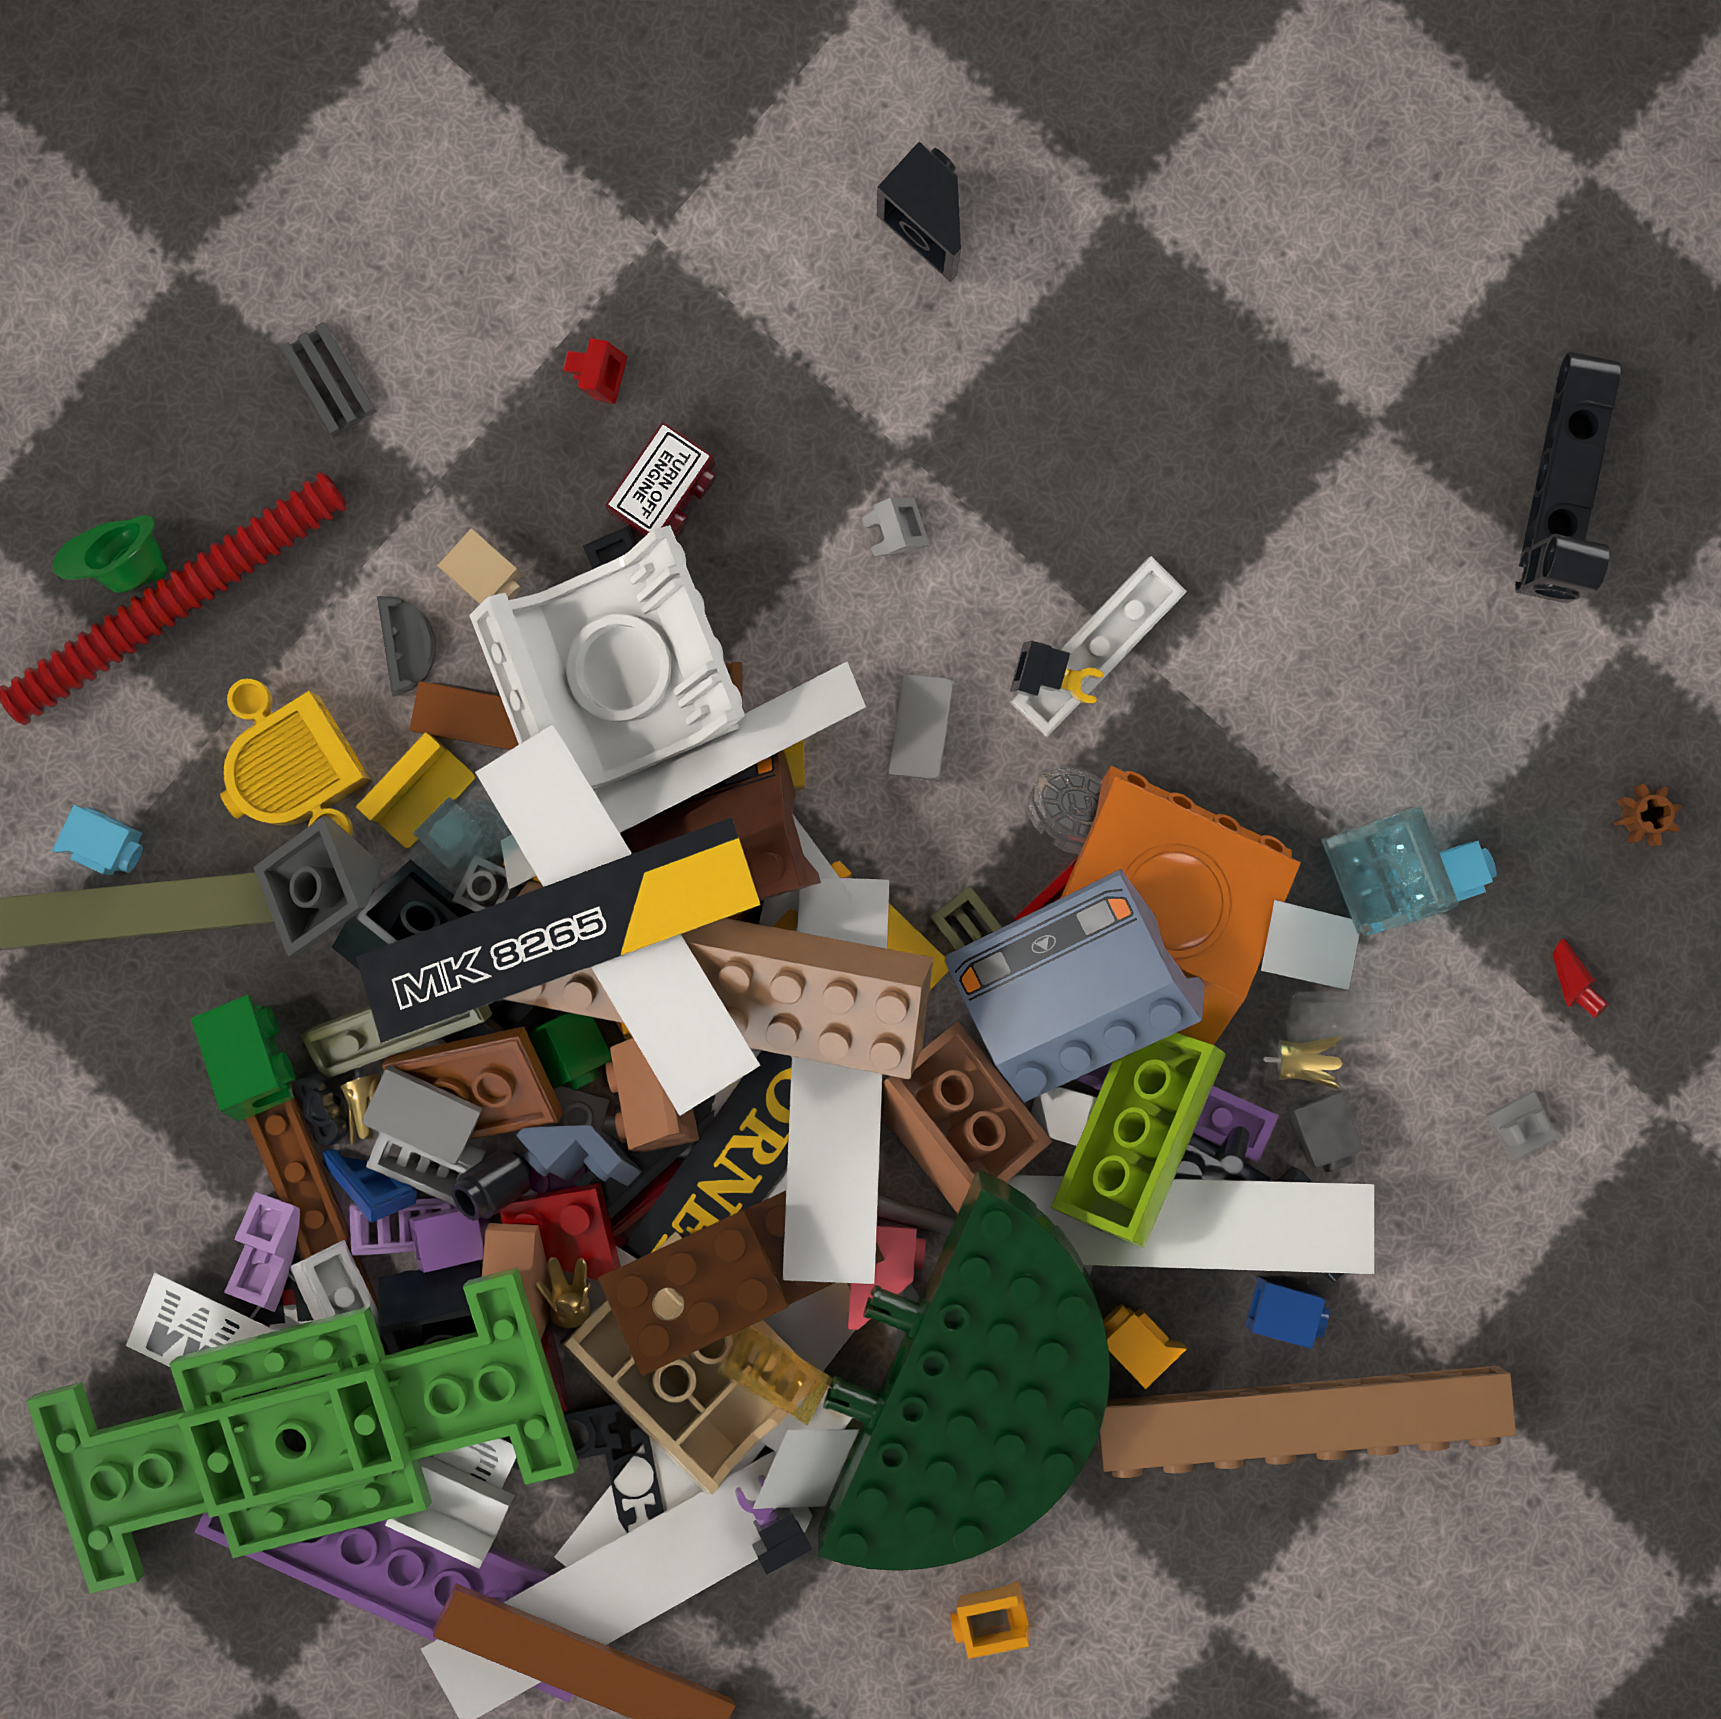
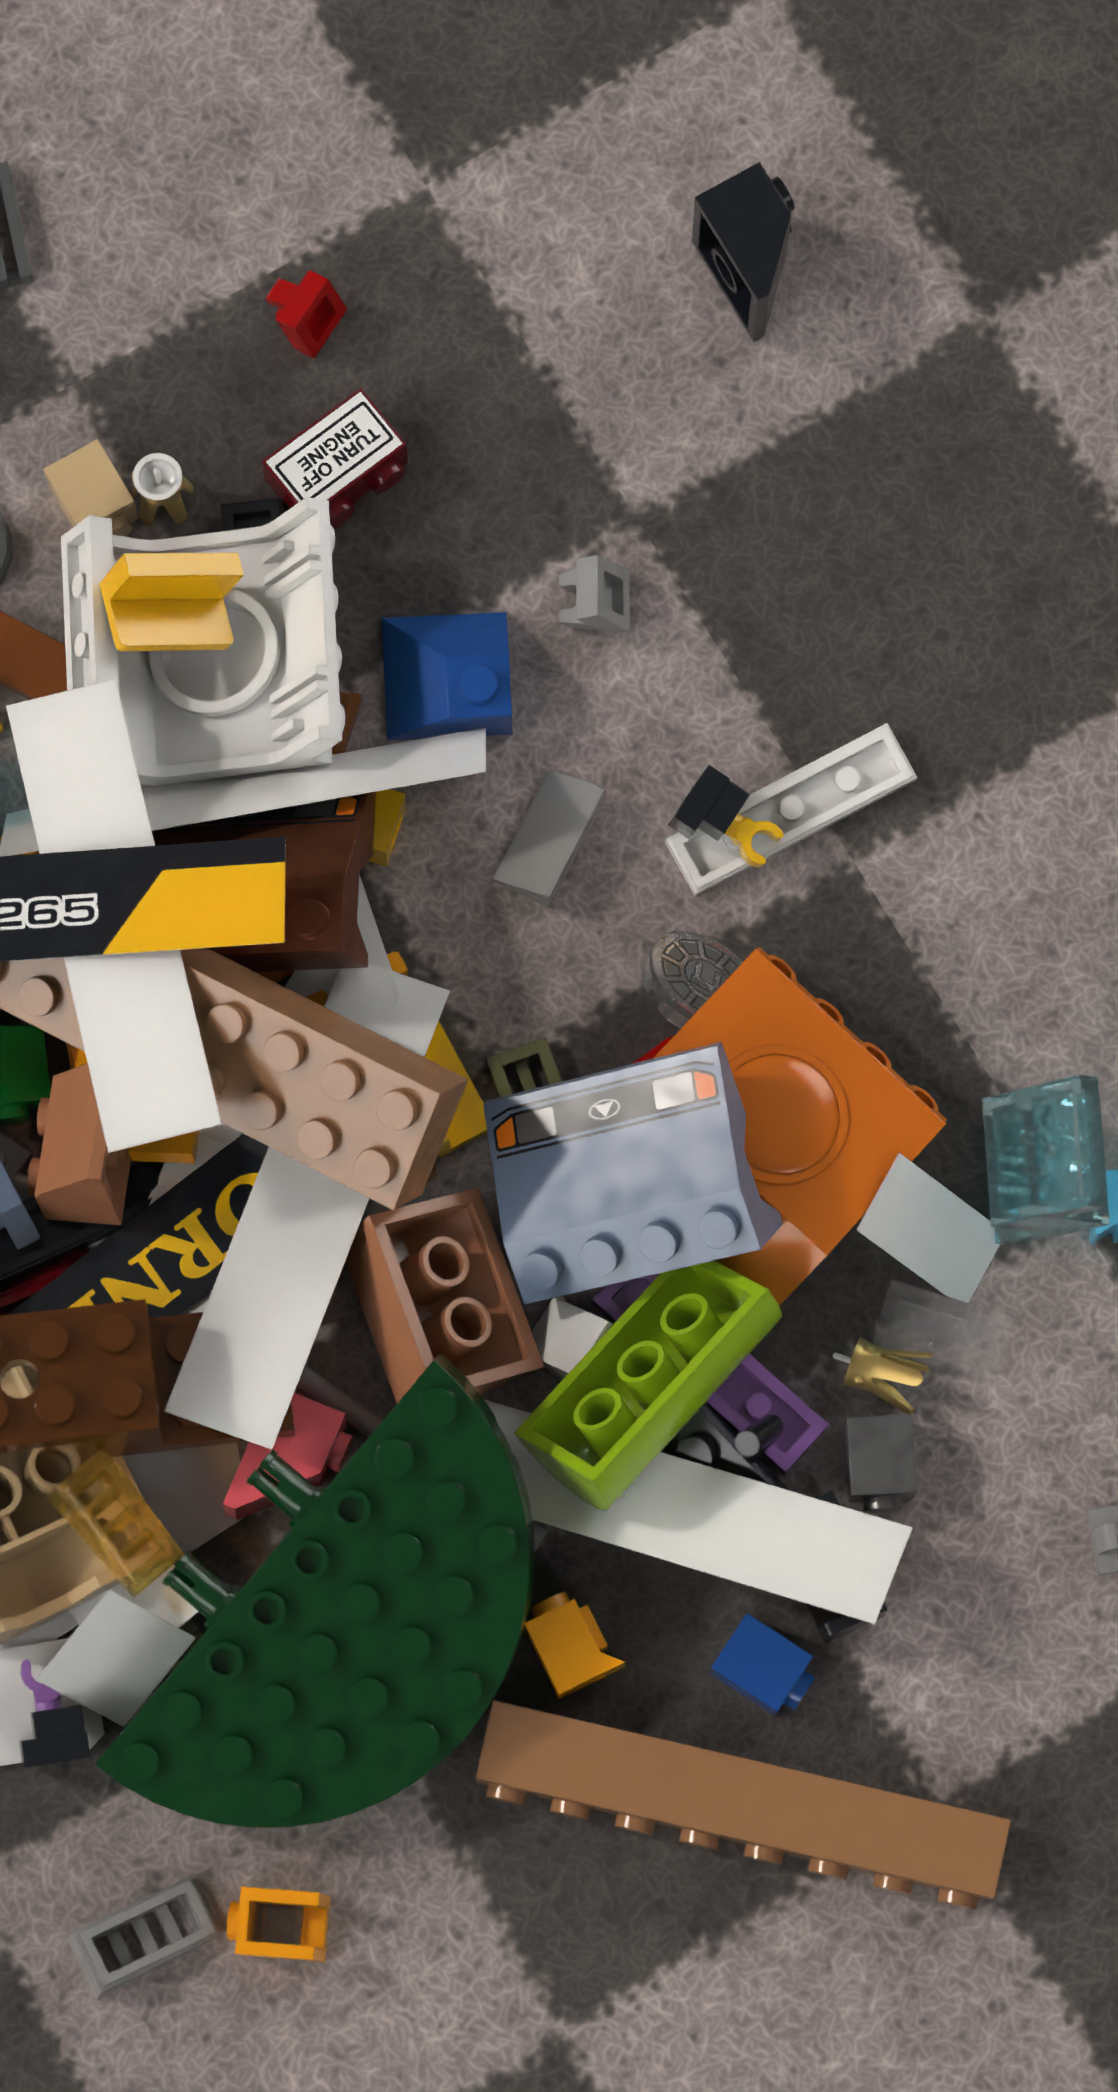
camera: 20 degrees right, 10 degrees down
(530, 547) = (159, 483): none -> white piece
(574, 645) = (170, 600): none -> yellow panel
(802, 625) = (446, 675): none -> blue slope
(865, 1659) = (91, 1963): none -> light grey slope

